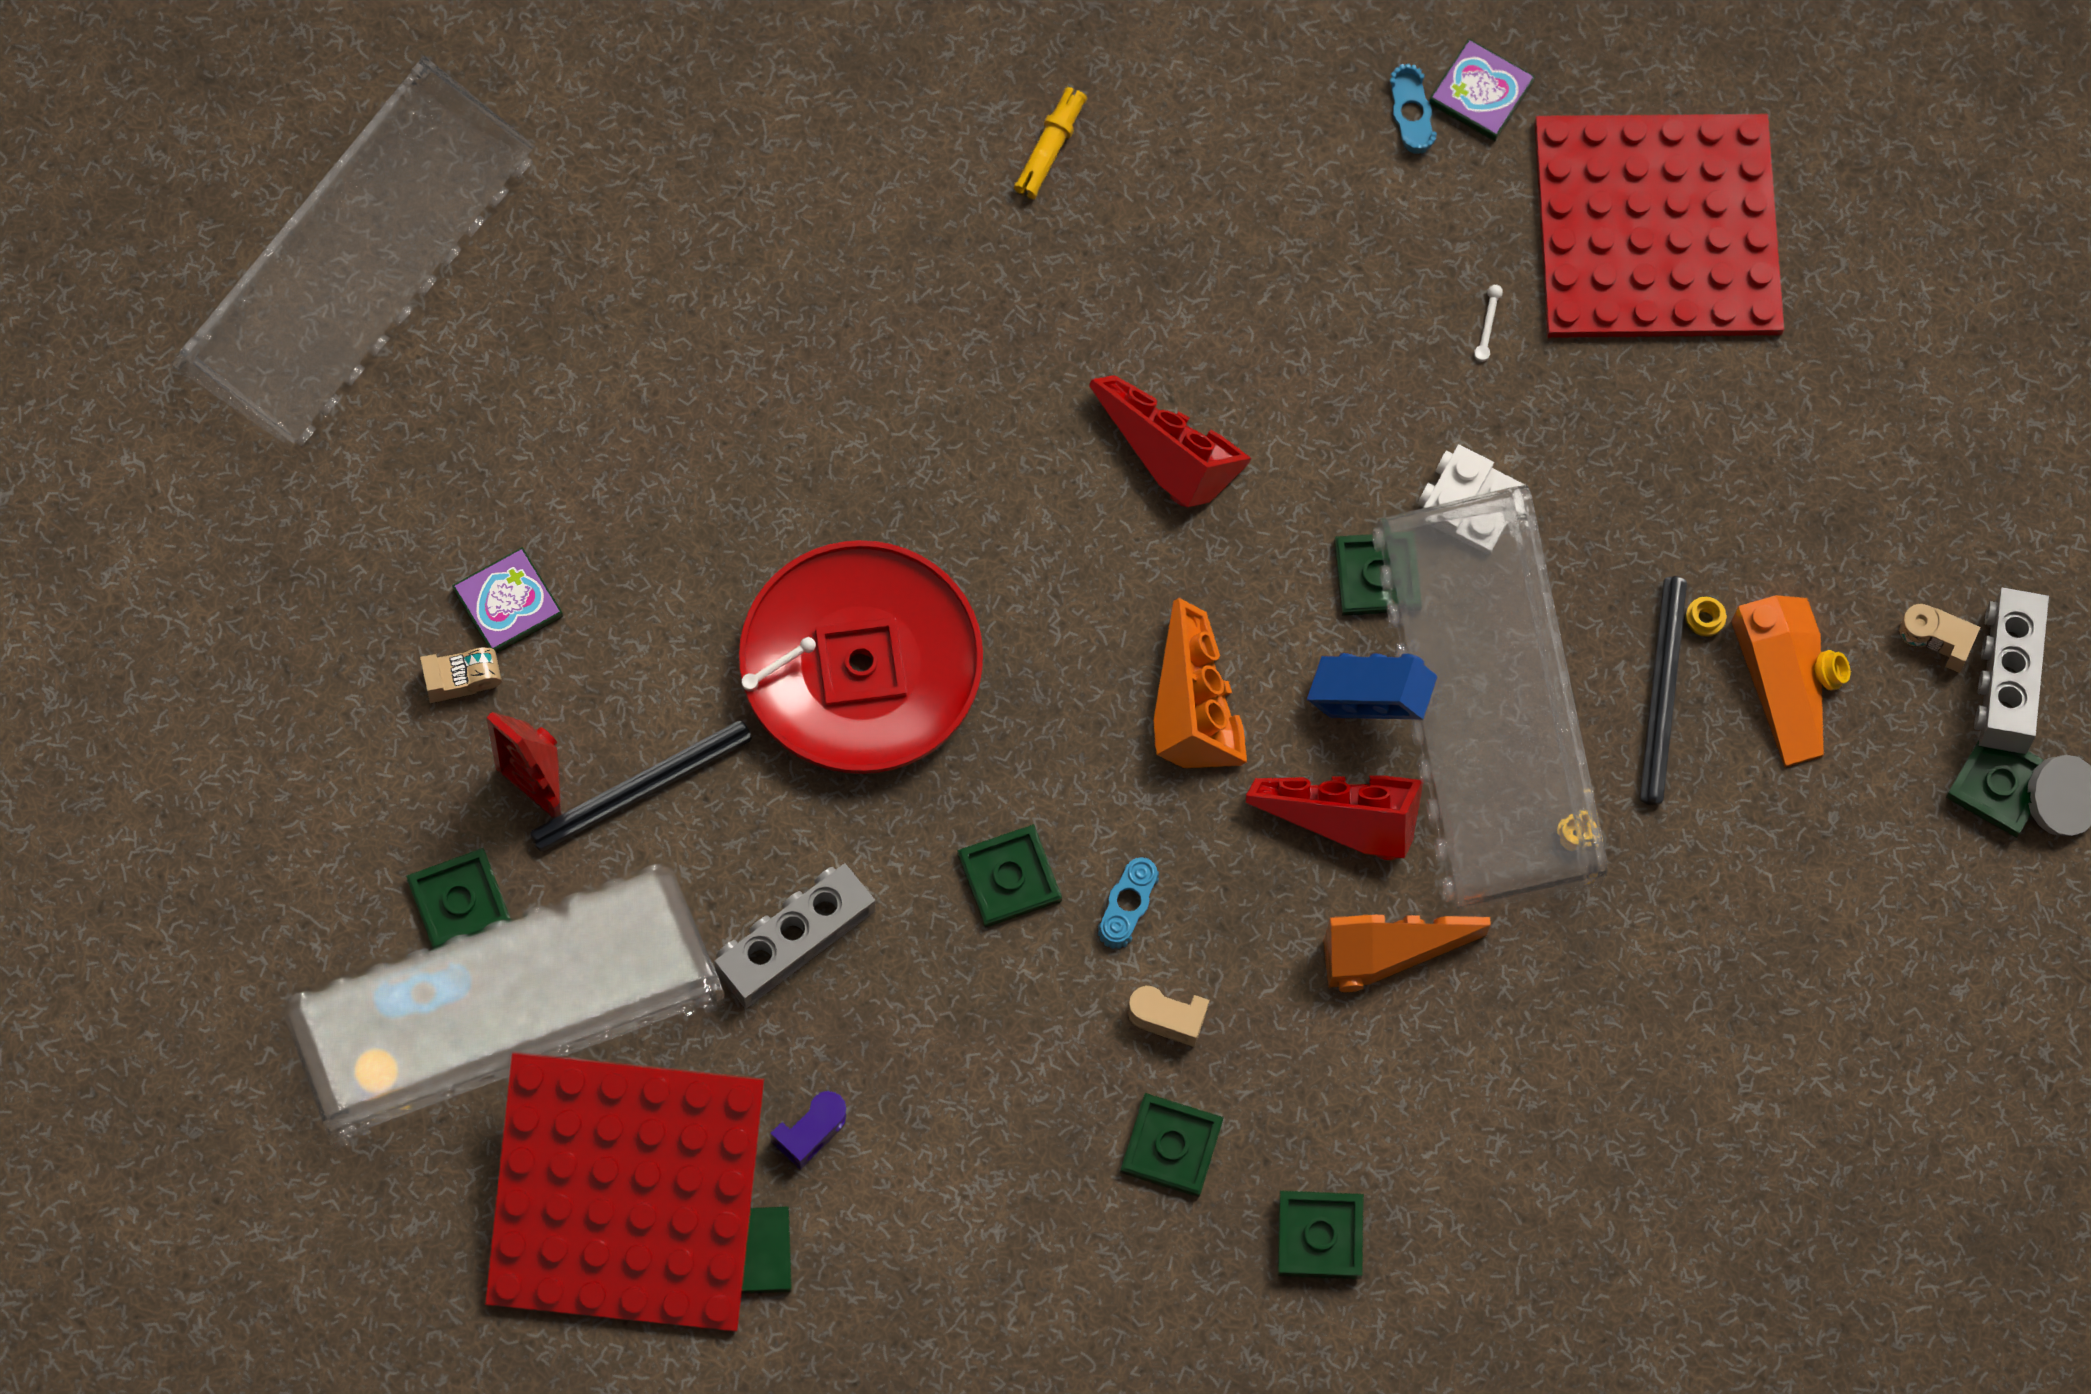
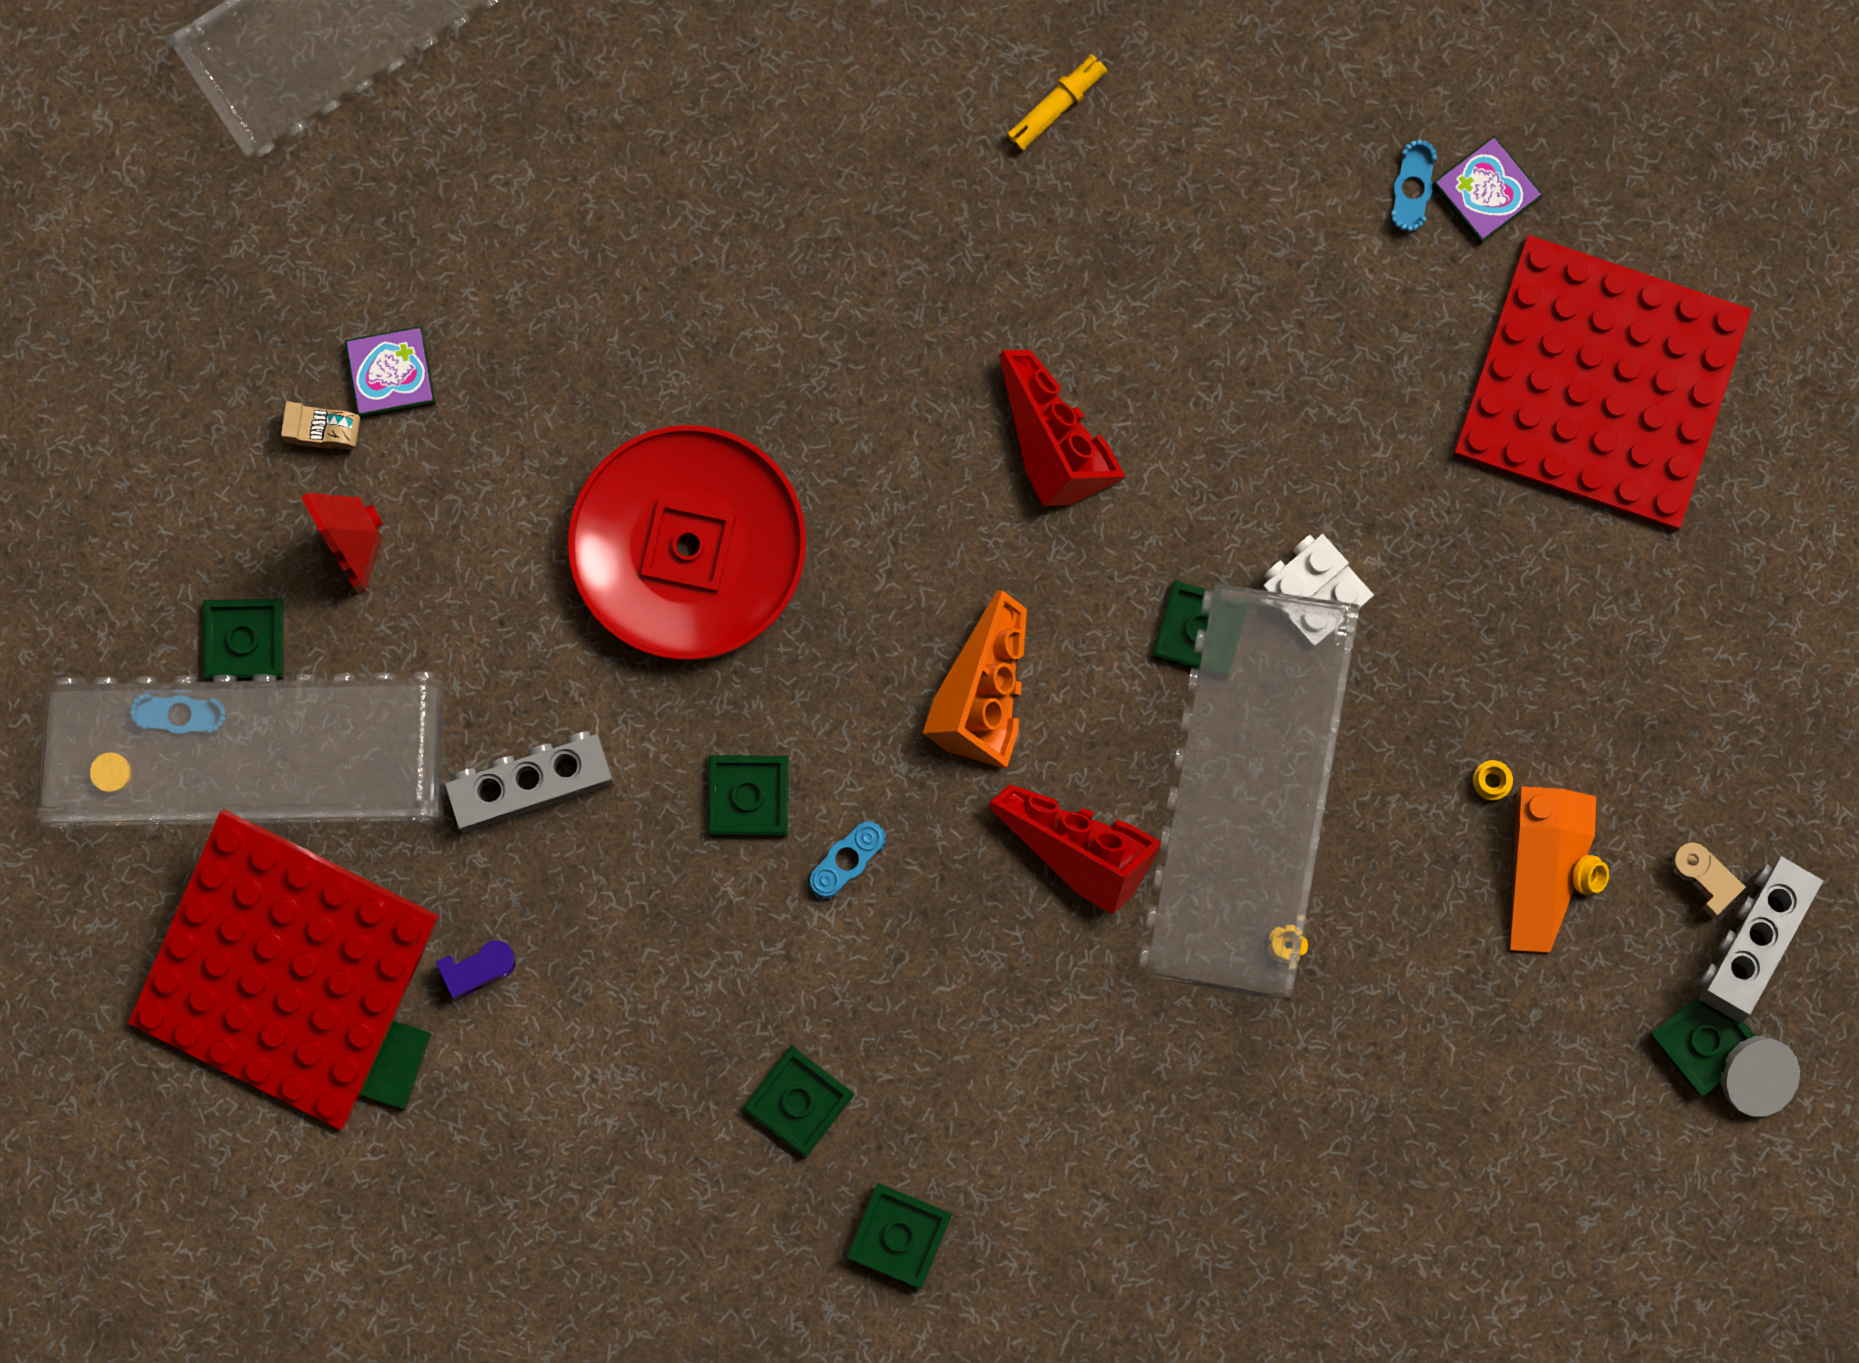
camera: 30 degrees right, 10 degrees up
(640, 786) = (445, 591): black axle -> none
(750, 681) = (576, 532): white hinge -> none
(1167, 1017) = (828, 973): tan leg -> none
(1368, 949) = (1048, 990): orange wedge -> none
(1372, 687) = (1145, 742): blue brick -> none
(1482, 352) = (1385, 448): white hinge -> none
(1663, 690) = (1423, 837): black axle -> none

